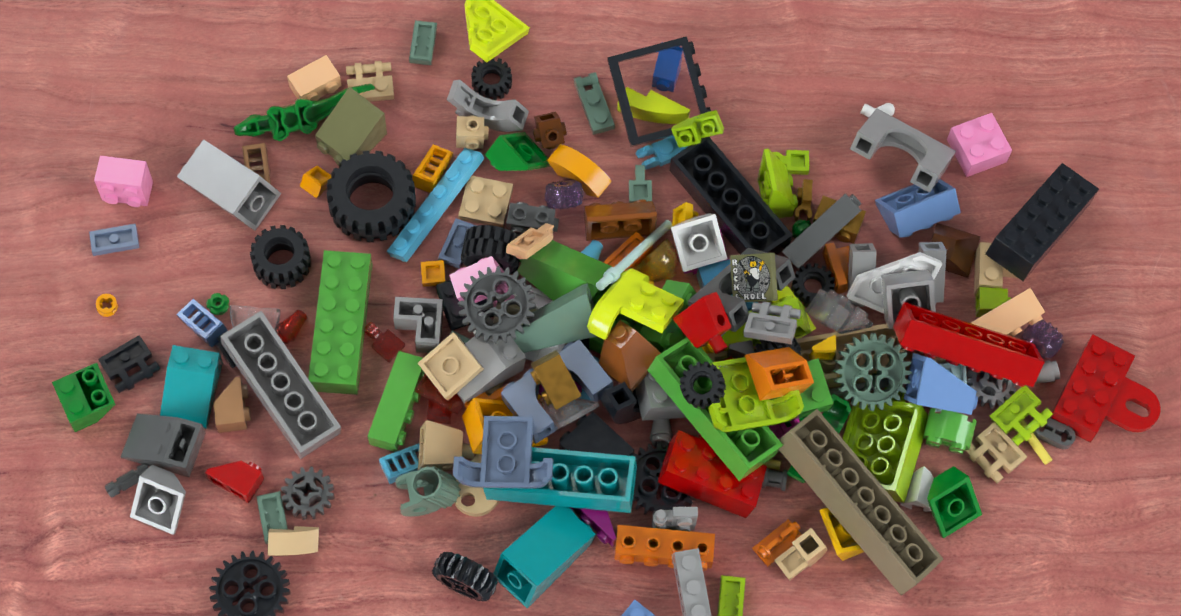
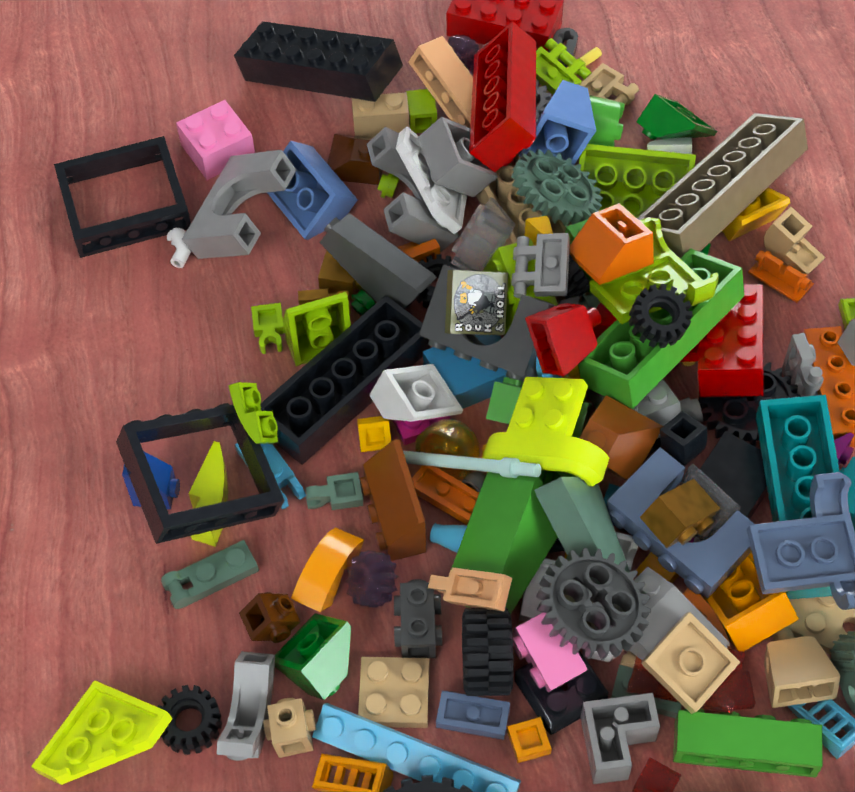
camera: 95 degrees left, 10 degrees down
(935, 111) = (128, 229): none -> black window

